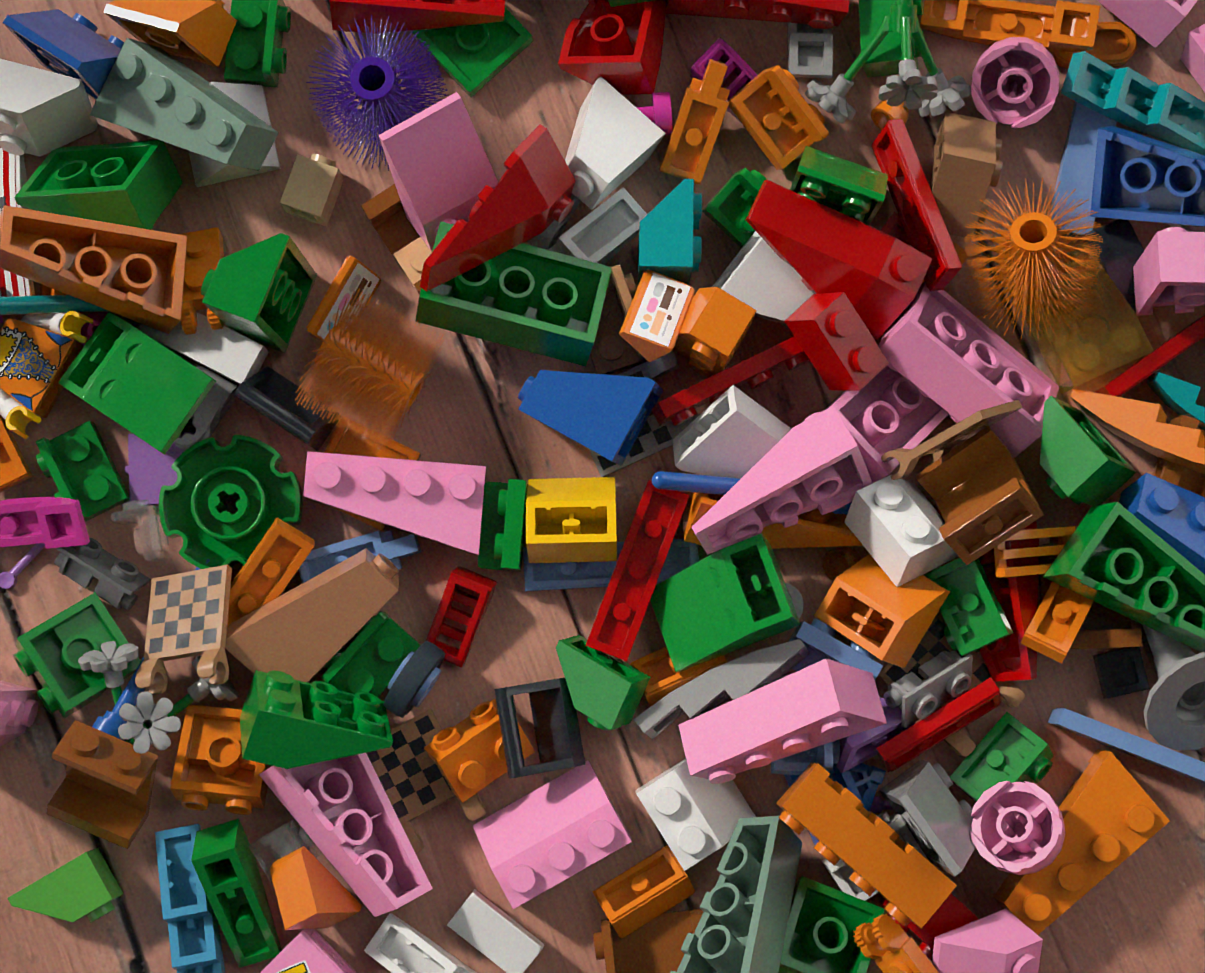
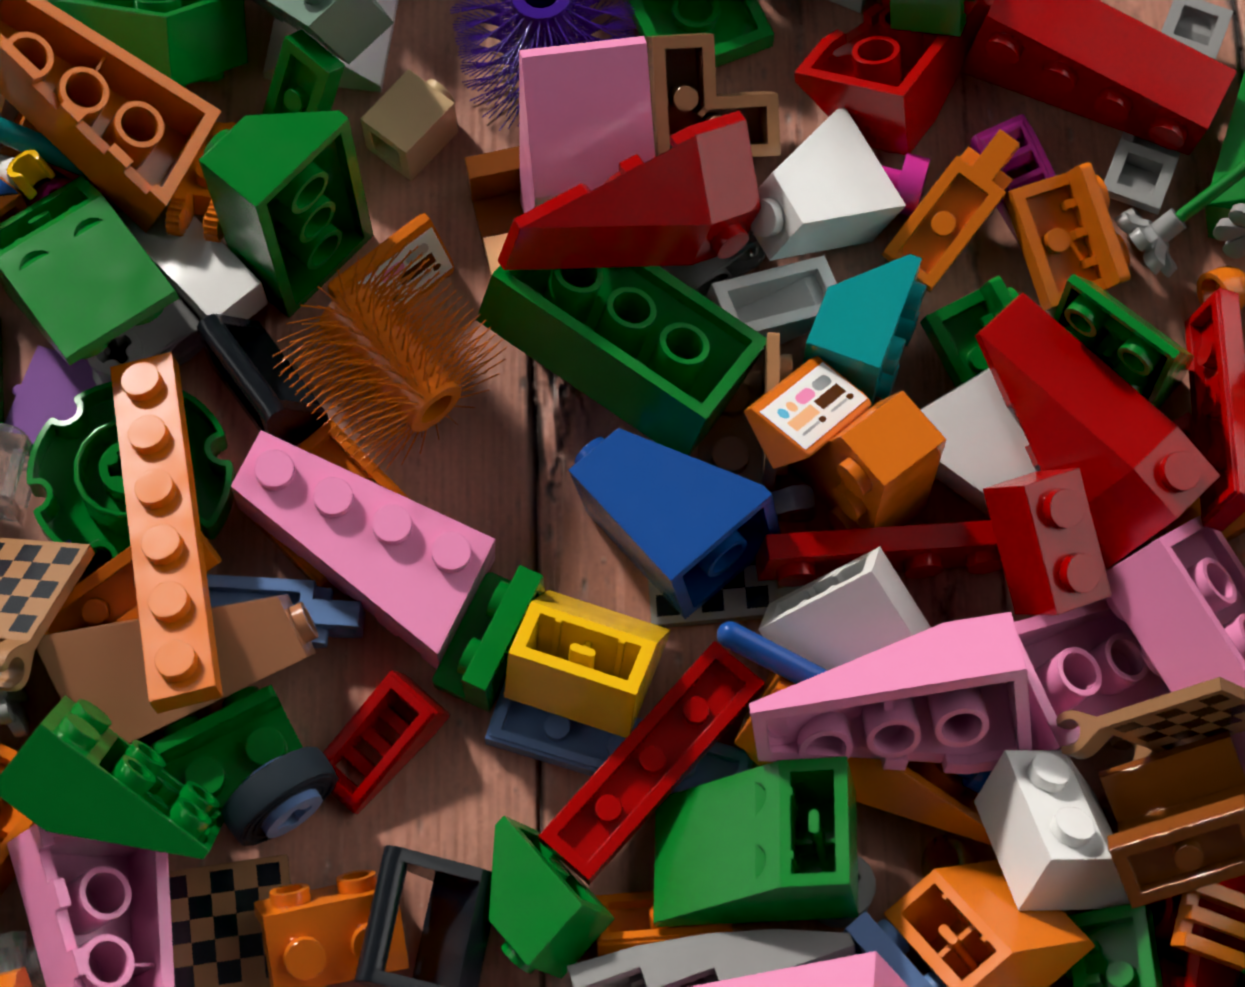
camera: 20 degrees right, 15 degrees down
(233, 200) = (303, 77): none -> green plate
(274, 542) = (165, 534): none -> orange plate
(505, 117) = (686, 93): none -> medium nougat brick

